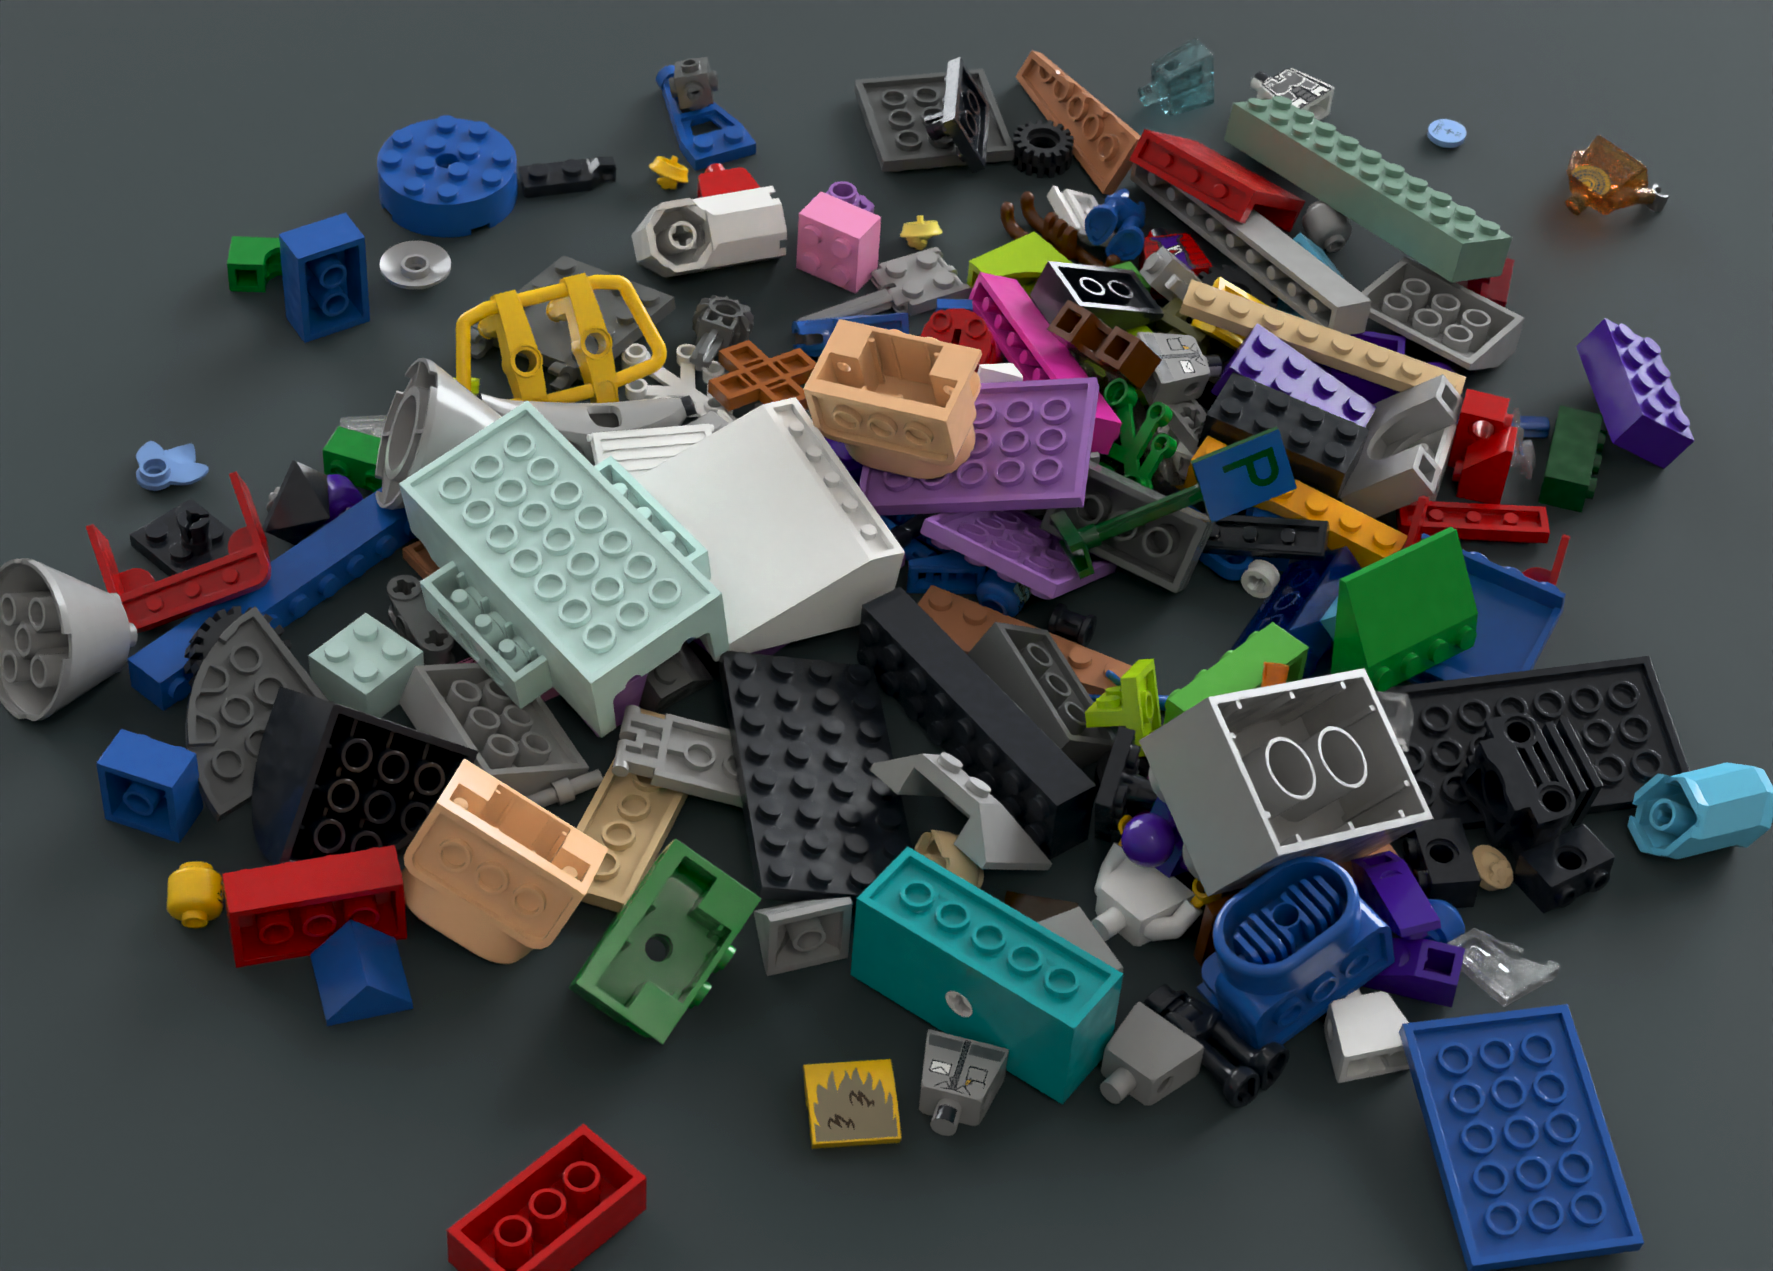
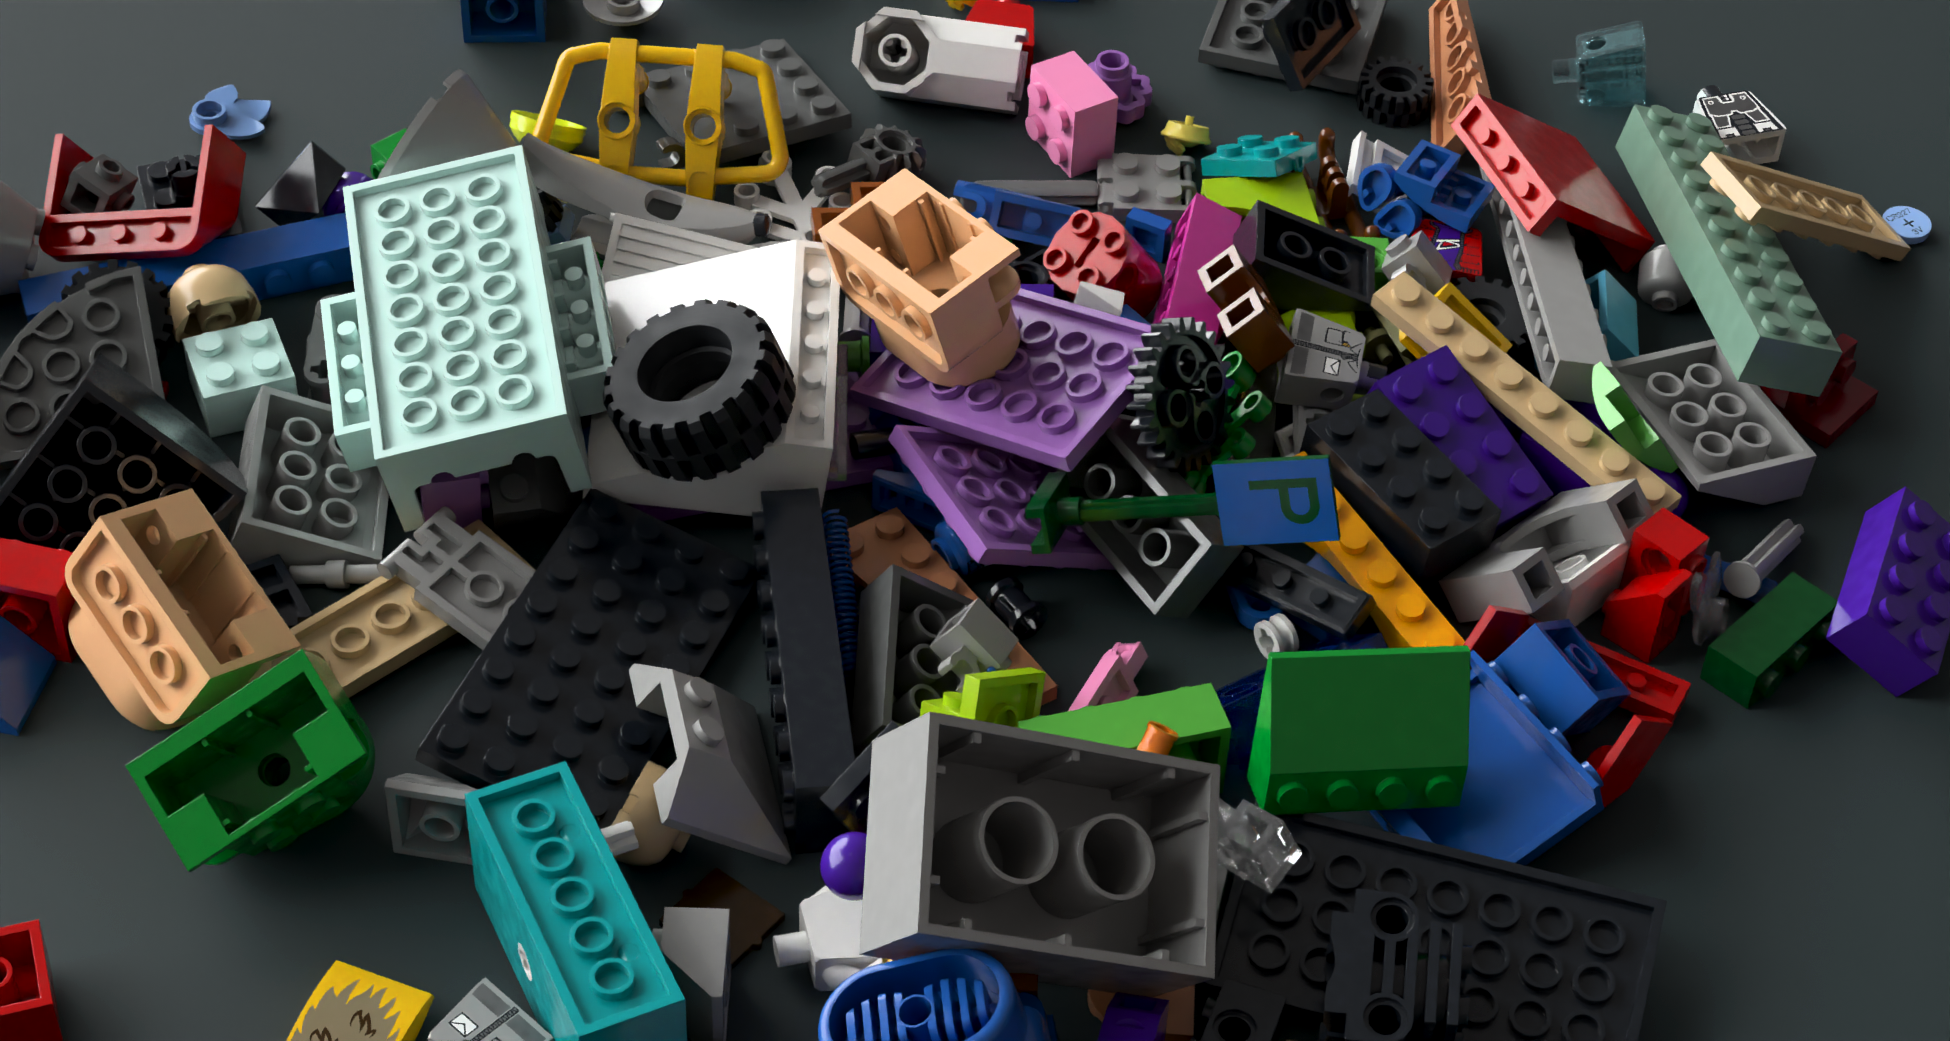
camera: 30 degrees right, 0 degrees up
(141, 559) = (99, 187): none -> dark grey brick
(305, 616) = (211, 300): none -> tan cylinder
(773, 503) = (716, 426): none -> black tyre
(995, 231) = (1259, 158): none -> teal plate
(1081, 660) = (973, 642): none -> light grey brick
(1122, 422) = (1171, 422): none -> black gear
(1144, 210) = (1435, 184): none -> blue slope
(1179, 656) = (1113, 676): none -> bright pink hinge
(1398, 142) = (1803, 207): none -> tan plate
(1407, 340) = (1626, 423): none -> bright green brick
(1480, 529) = (1562, 677): none -> blue brick
(1533, 418) = (1746, 576): none -> light grey axle

